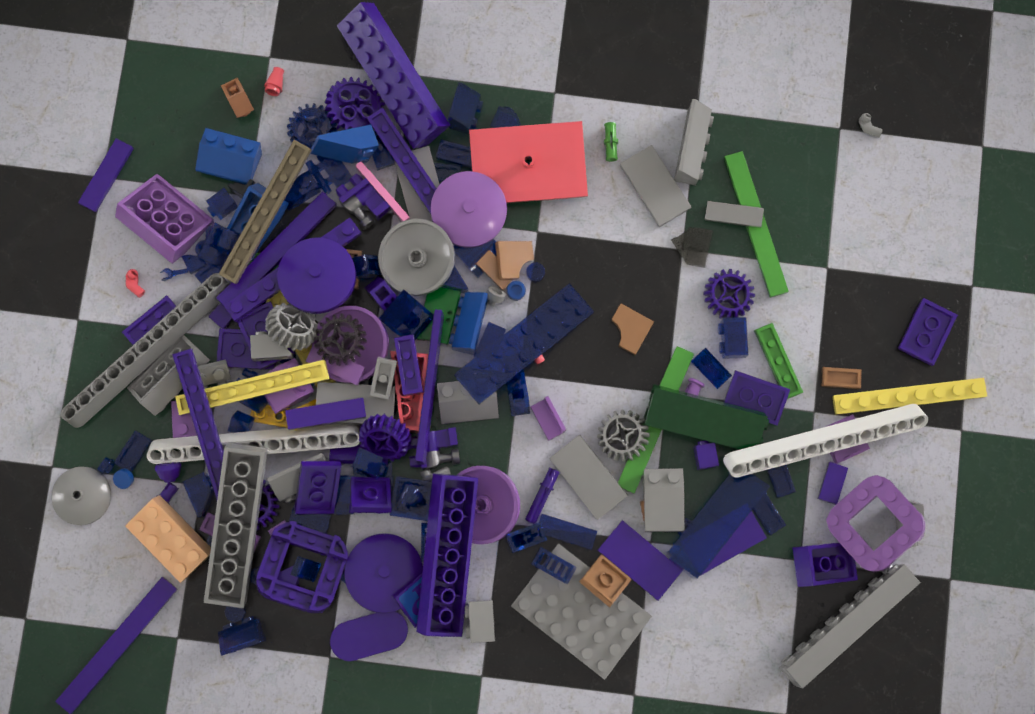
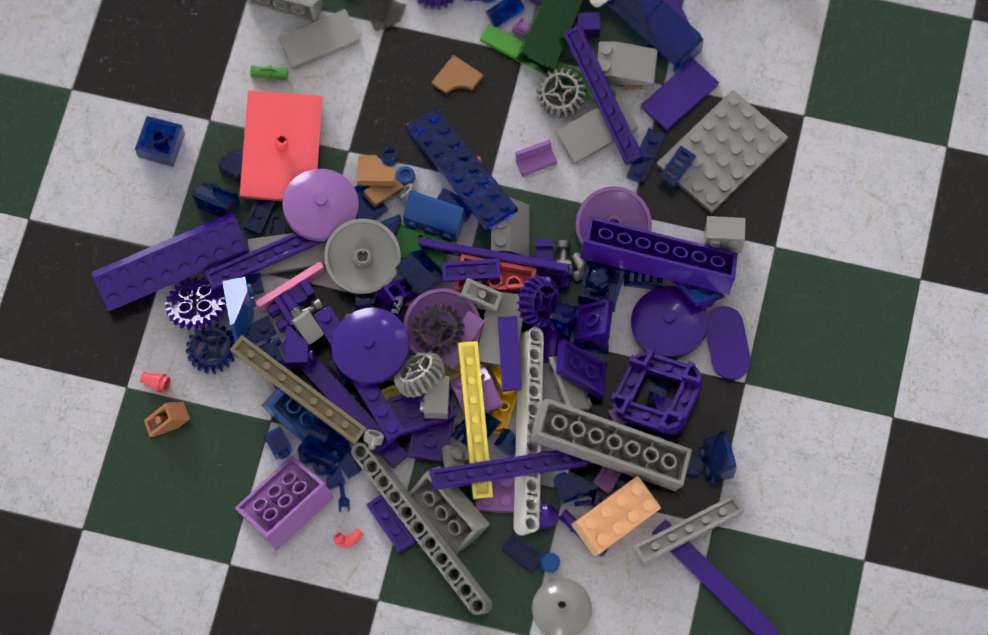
camera: 75 degrees left, 10 degrees down
(105, 175) = (228, 559): dark purple tile -> none
(106, 466) = (534, 579): clear blue plate -> none
(163, 612) = (688, 529): none -> light grey plate
(190, 518) = (595, 500): none -> clear blue hand
(225, 291) = (373, 438): none -> light grey tile
(228, 156) = (229, 430): blue slope -> none
(240, 188) = (263, 421): black panel -> none
(313, 521) = (612, 381): clear blue tile -> none
(314, 208) = (297, 351): none -> dark purple slope
(334, 214) = (307, 327): none -> light grey slope
(353, 296) = (398, 307): none -> clear blue tile
(518, 395) = (513, 180): clear blue slope -> none
(520, 46) = (160, 141): none -> clear blue brick
(526, 537) = (648, 187): clear blue slope -> none
(542, 495) = (609, 172): dark purple axle -> none
(605, 580) = (696, 123): medium nougat tile -> none
(623, 478) = (603, 94): none -> dark purple tile

